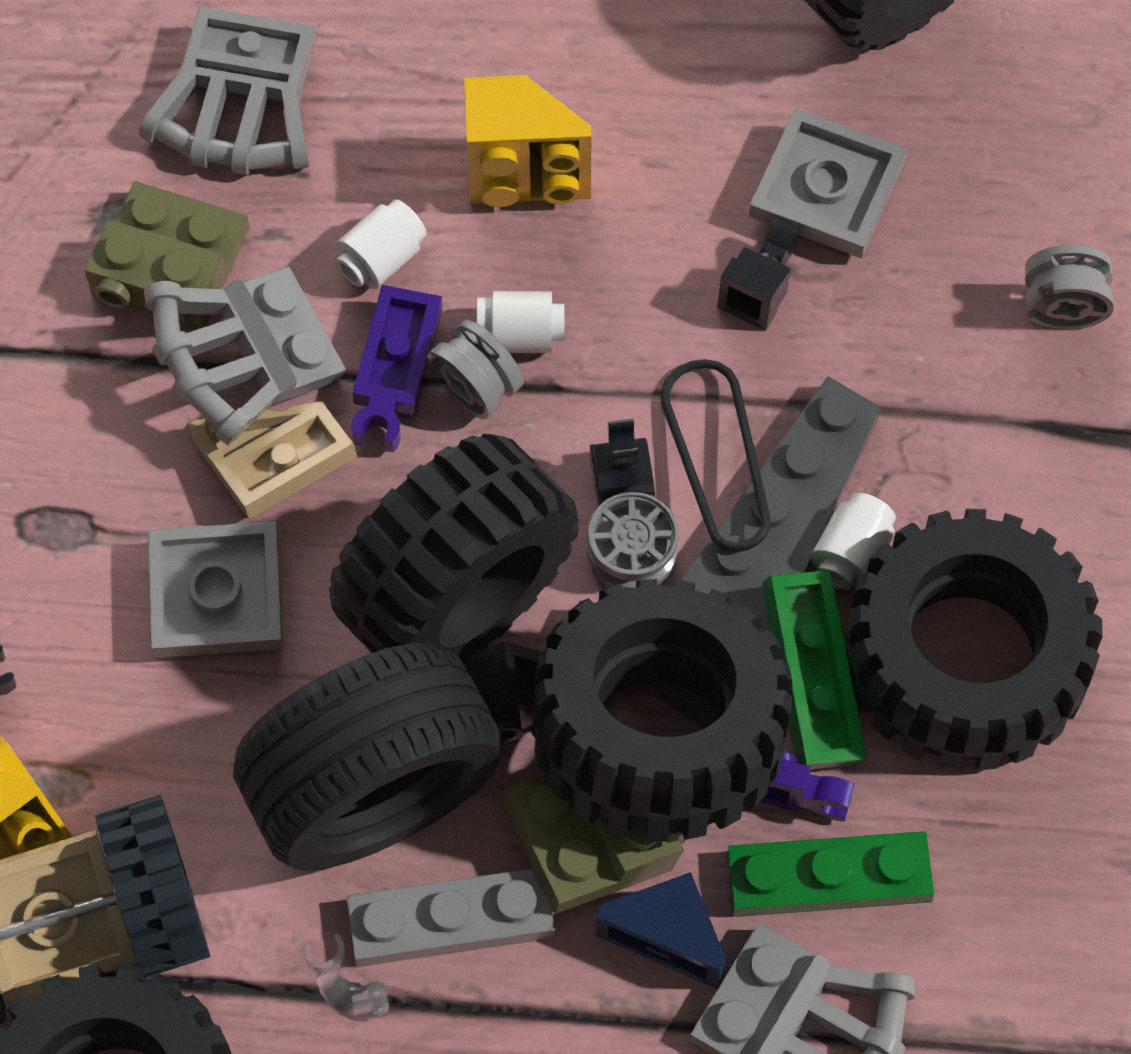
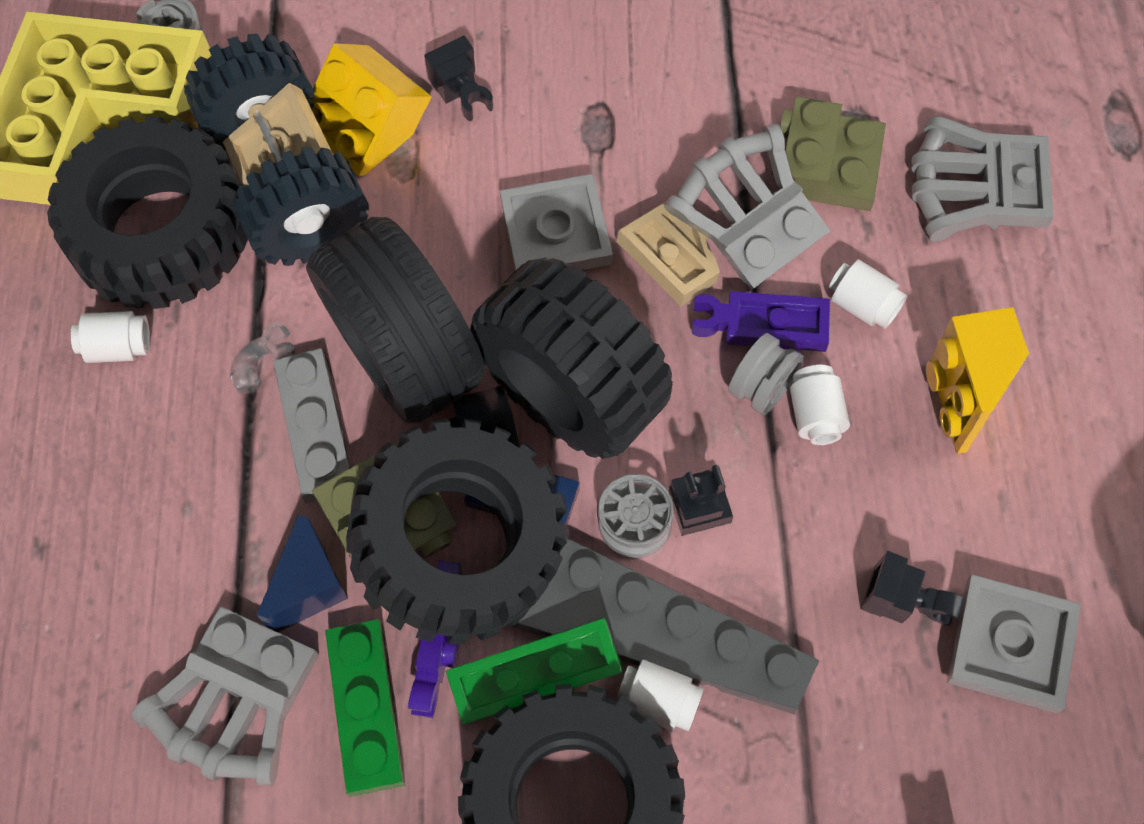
camera: 85 degrees right, 0 degrees up
(748, 445) = (733, 598): black piece -> none

